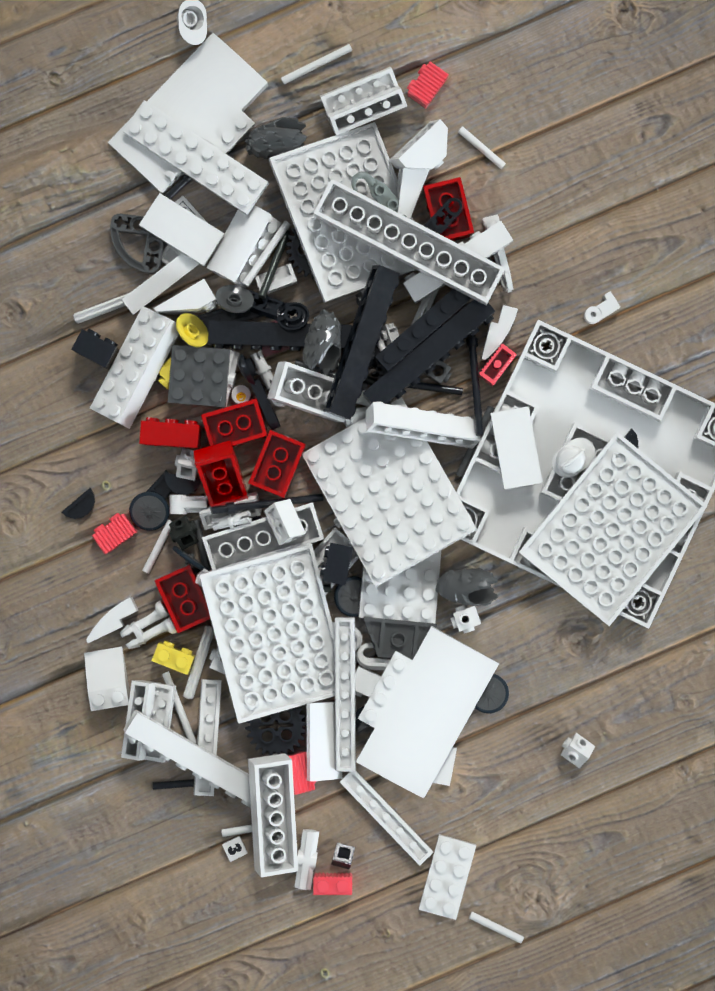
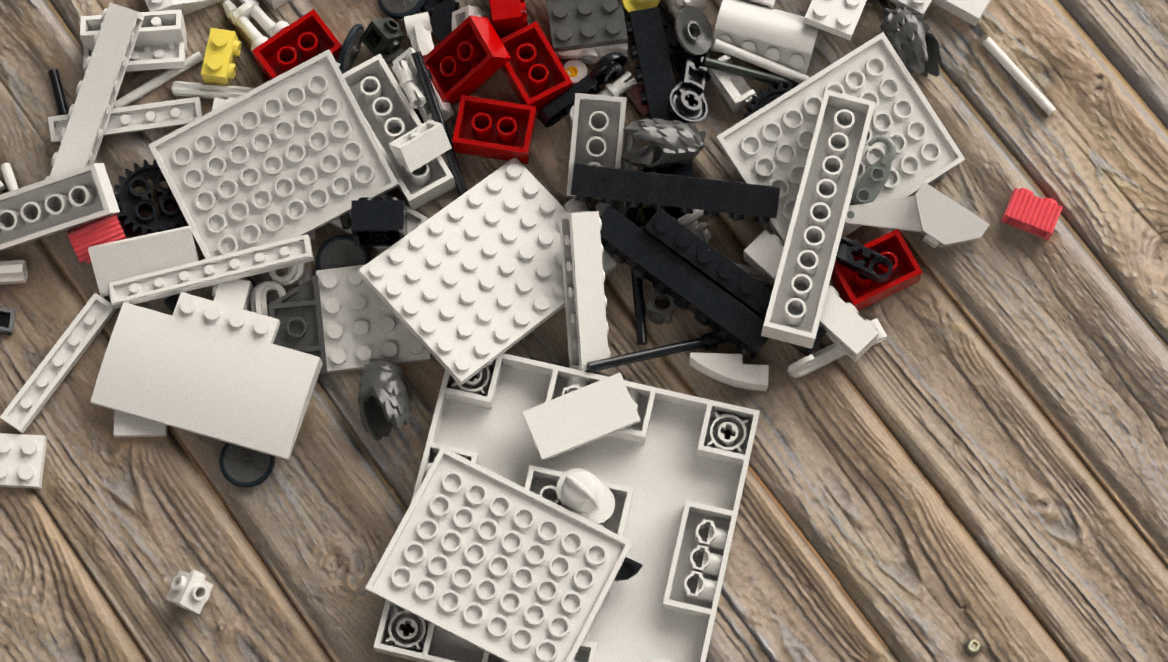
camera: 70 degrees right, 15 degrees down
(157, 548) = (352, 13): white bar -> none
(363, 101) = (988, 137): white brick -> none
(473, 618) = (340, 406): white brick -> none
(481, 147) = (968, 301): white bar -> none
(497, 364) = (687, 375): coral brick -> none
(597, 313) = (794, 500): white leg -> none

